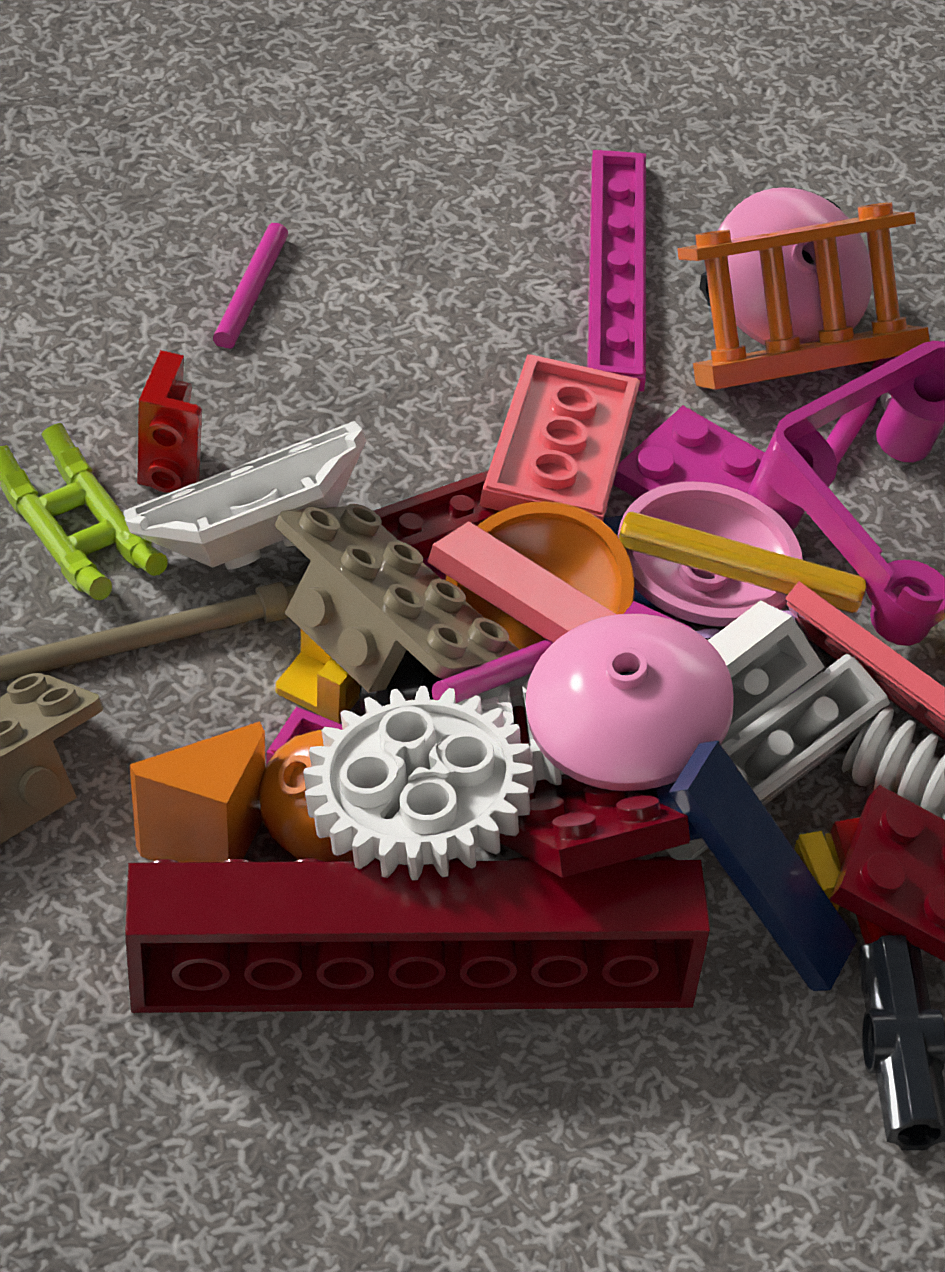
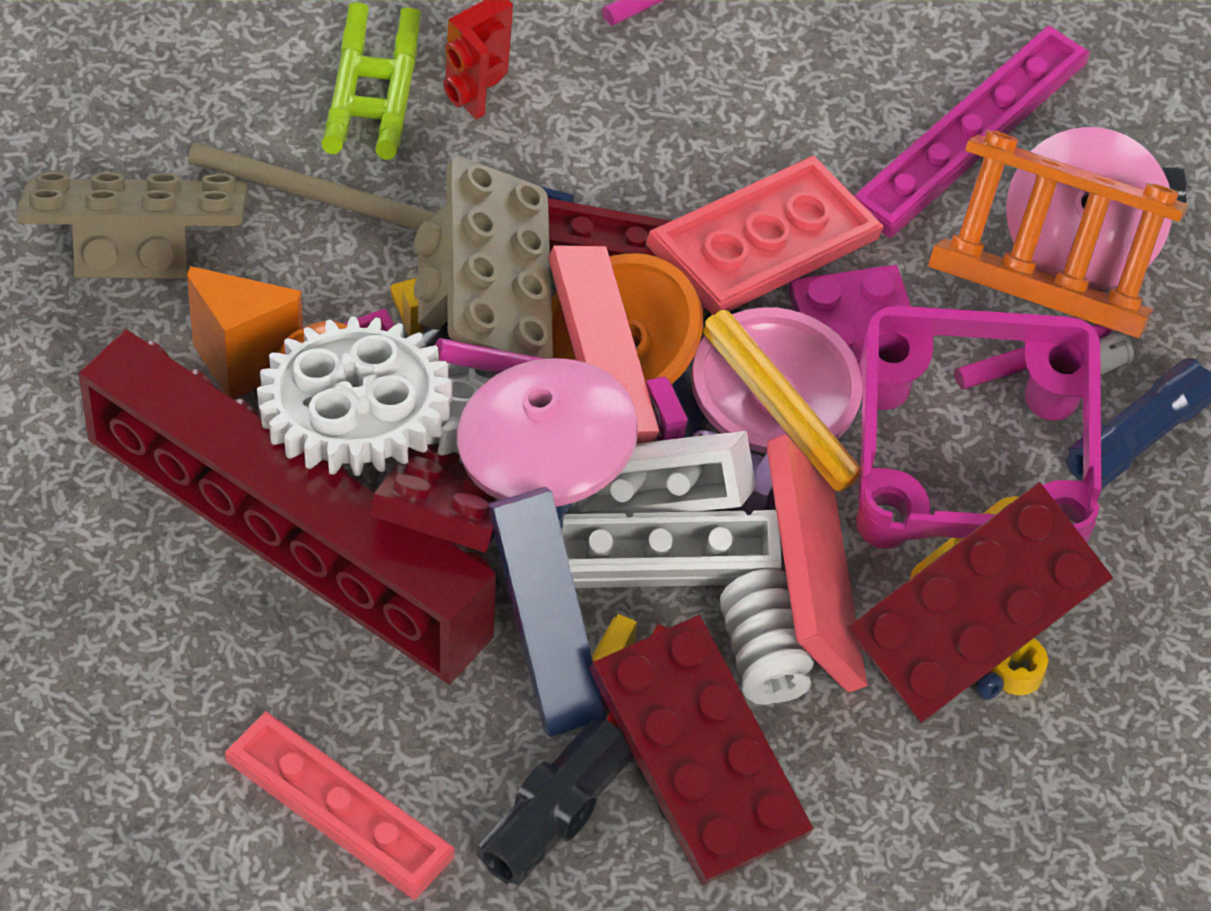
camera: 40 degrees right, 5 degrees up
(237, 509) = (503, 141): white wedge -> none
(720, 1186) = (340, 805): none -> coral tile

